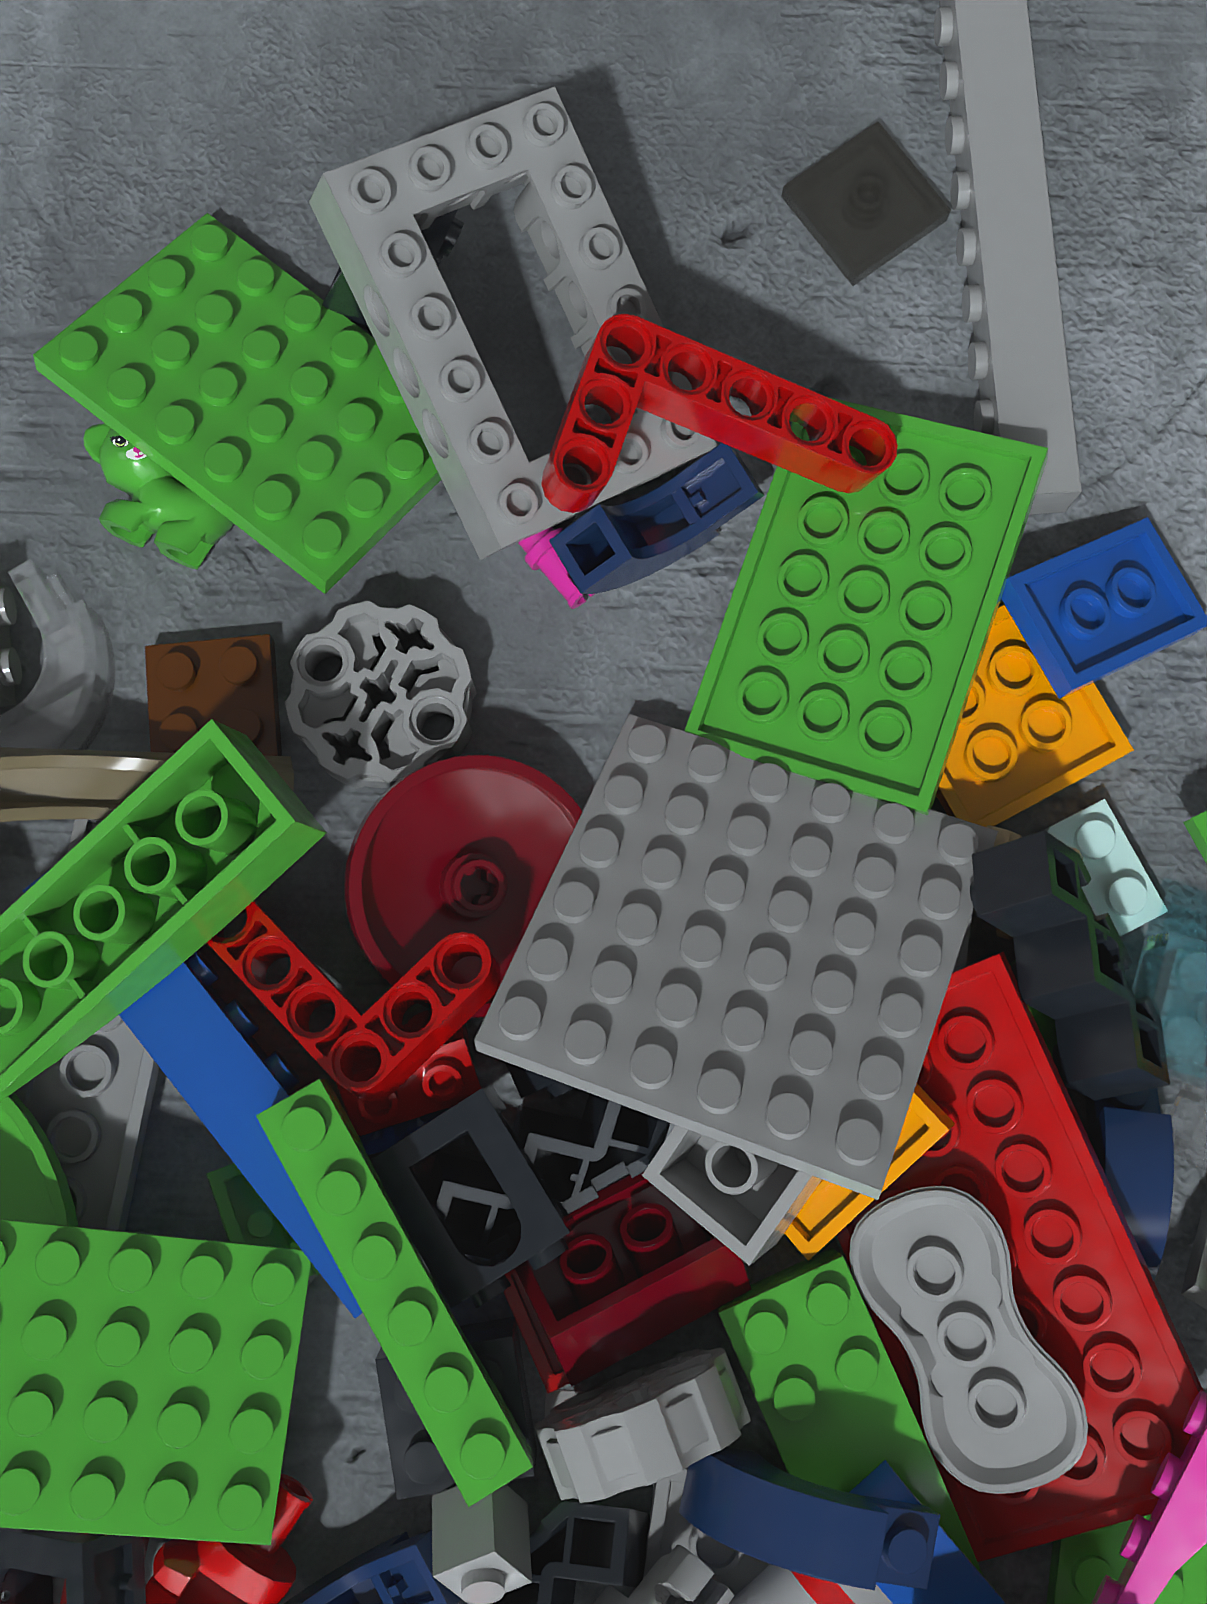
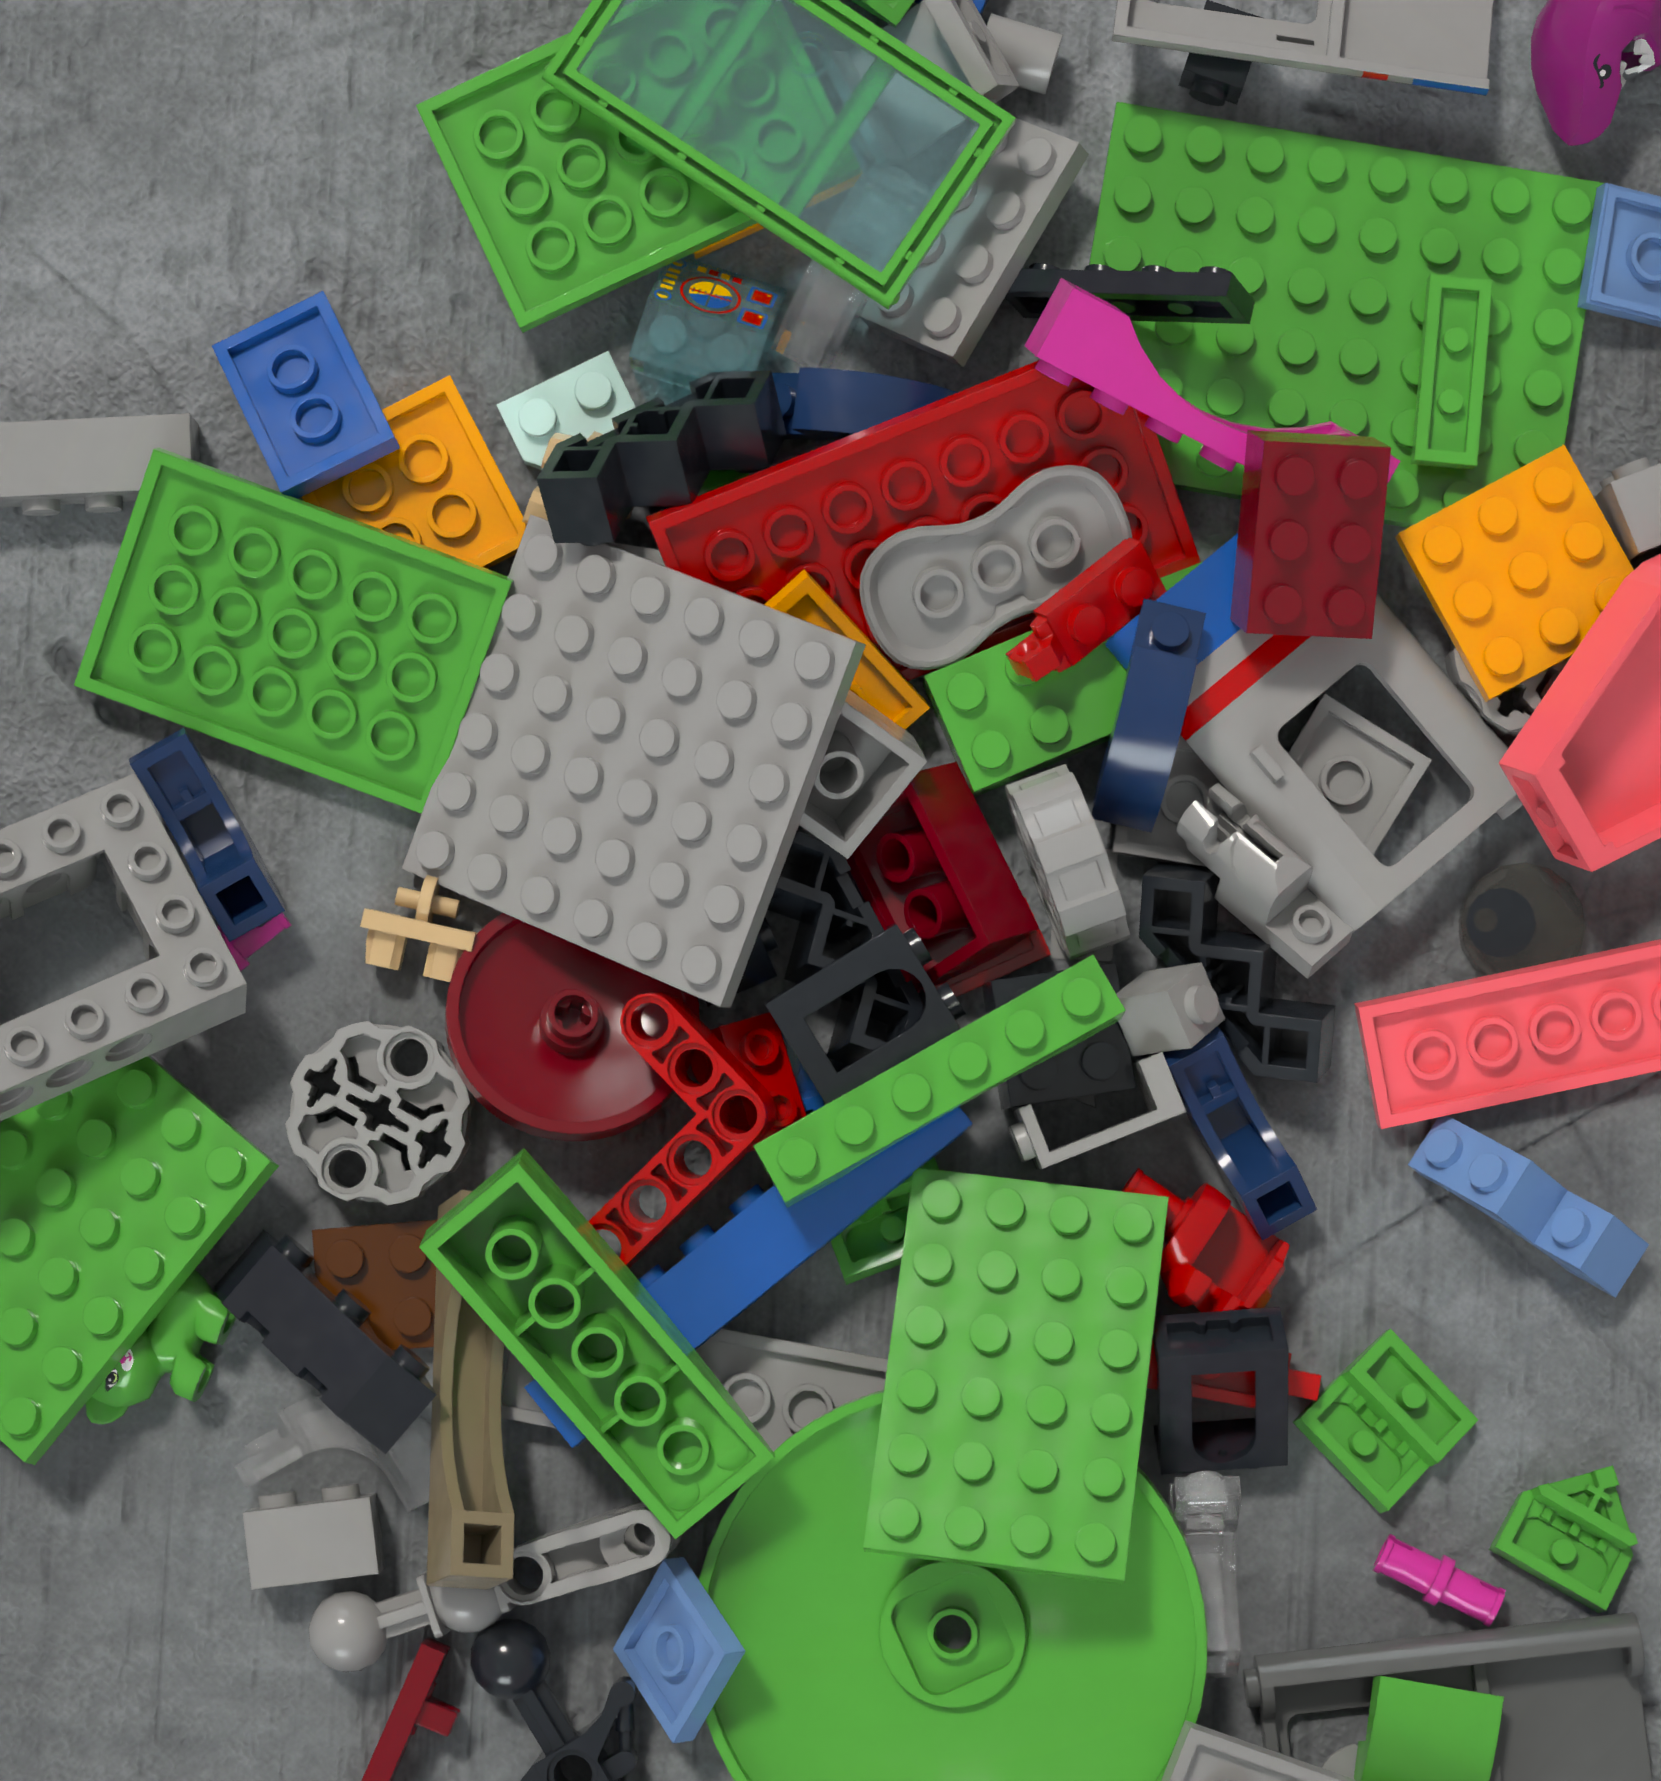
camera: 90 degrees left, 5 degrees up
(142, 643) = (326, 1340): none -> black brick
(374, 1525) = (1157, 1093): none -> light grey panel
(565, 704) = (390, 932): none -> tan hips
(706, 411) = (110, 782): red beam -> none
(922, 1446) = (1087, 611): none -> red hinge

